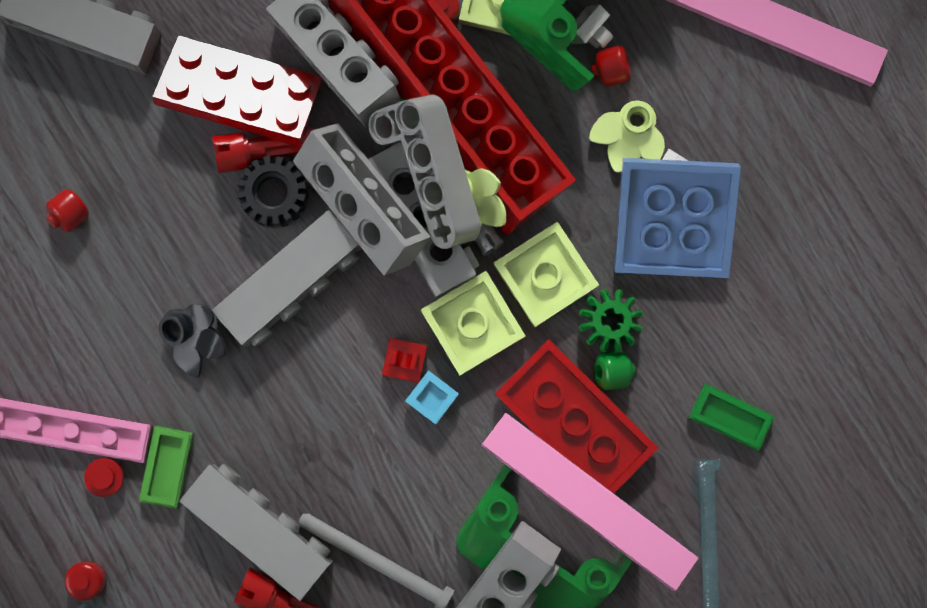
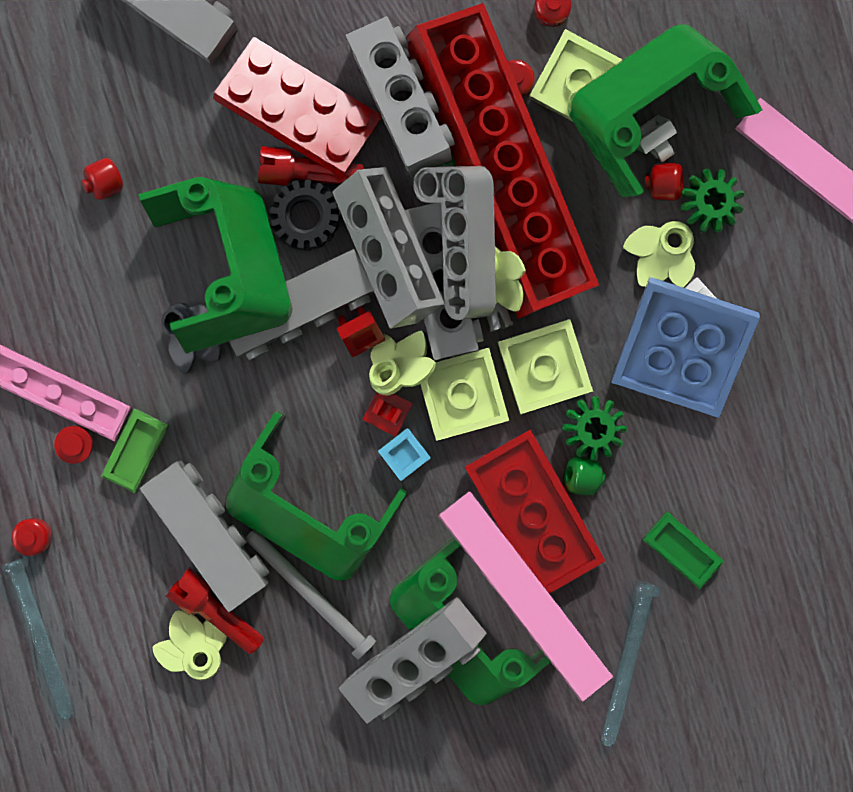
camera: 15 degrees right, 5 degrees up
(242, 273) = (256, 292): none -> green windscreen
(357, 290) = (360, 332): none -> red tile
(382, 512) = (330, 552): none -> green windscreen
(403, 310) = (402, 361): none -> yellowish green plate
(664, 59) = (706, 212): none -> green gear

